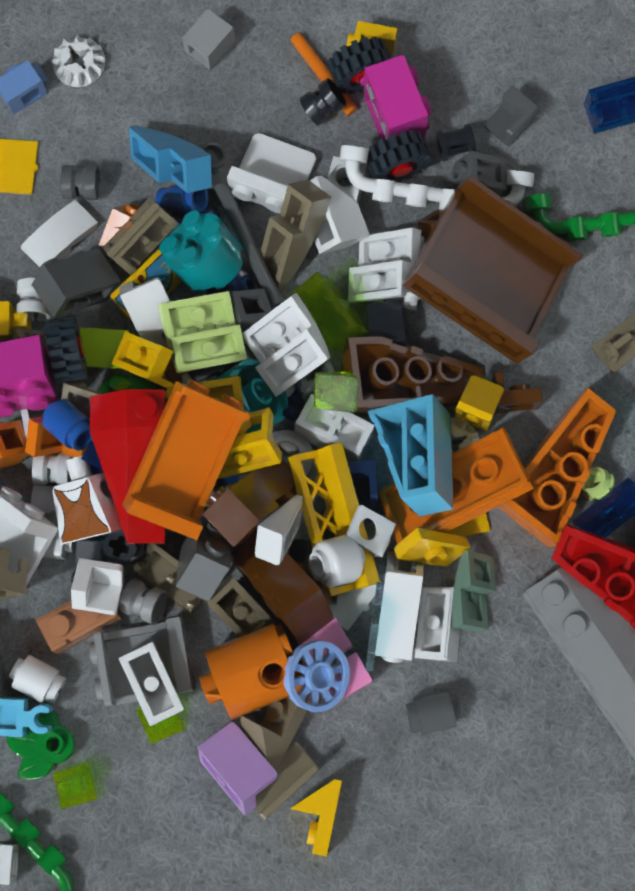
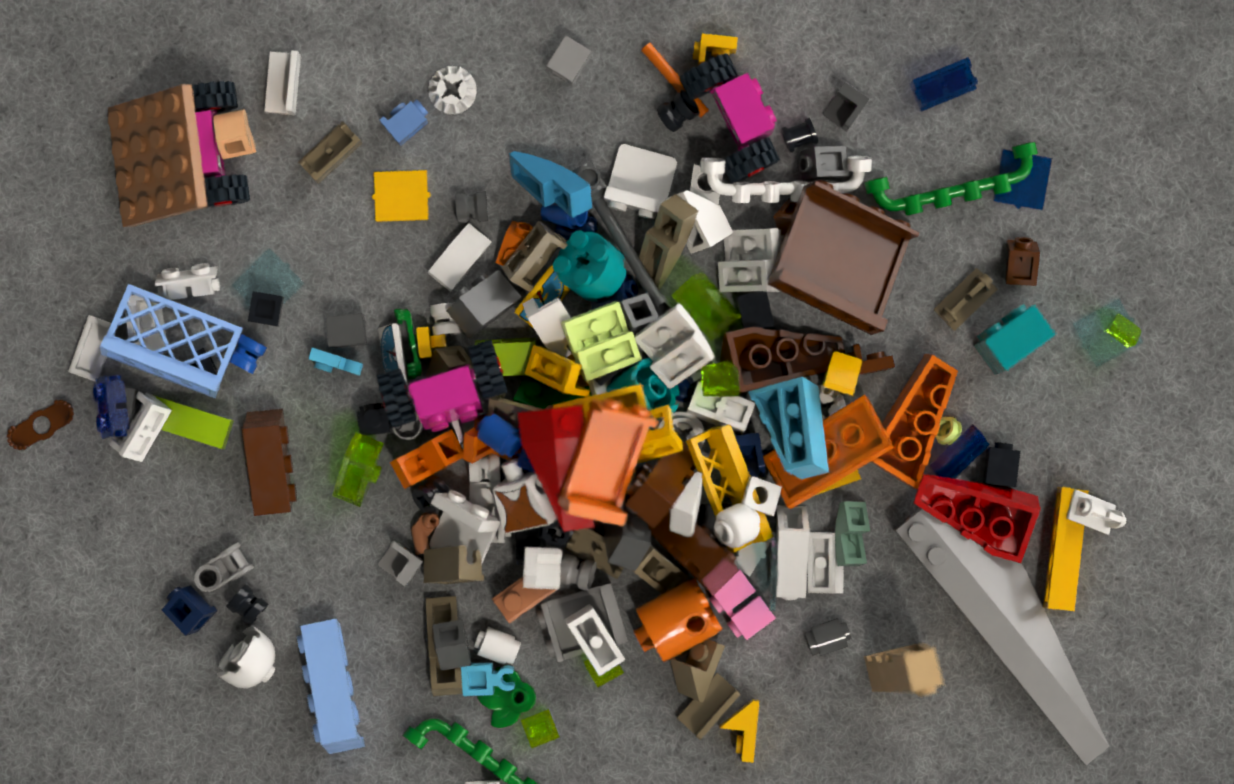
camera: 10 degrees left, 10 degrees up
(236, 766) = (672, 698): lavender panel -> none
(316, 676) = (731, 621): light blue wheel -> none
(431, 547) = (813, 503): yellow plate -> none
(529, 758) = (905, 670): none -> tan wedge

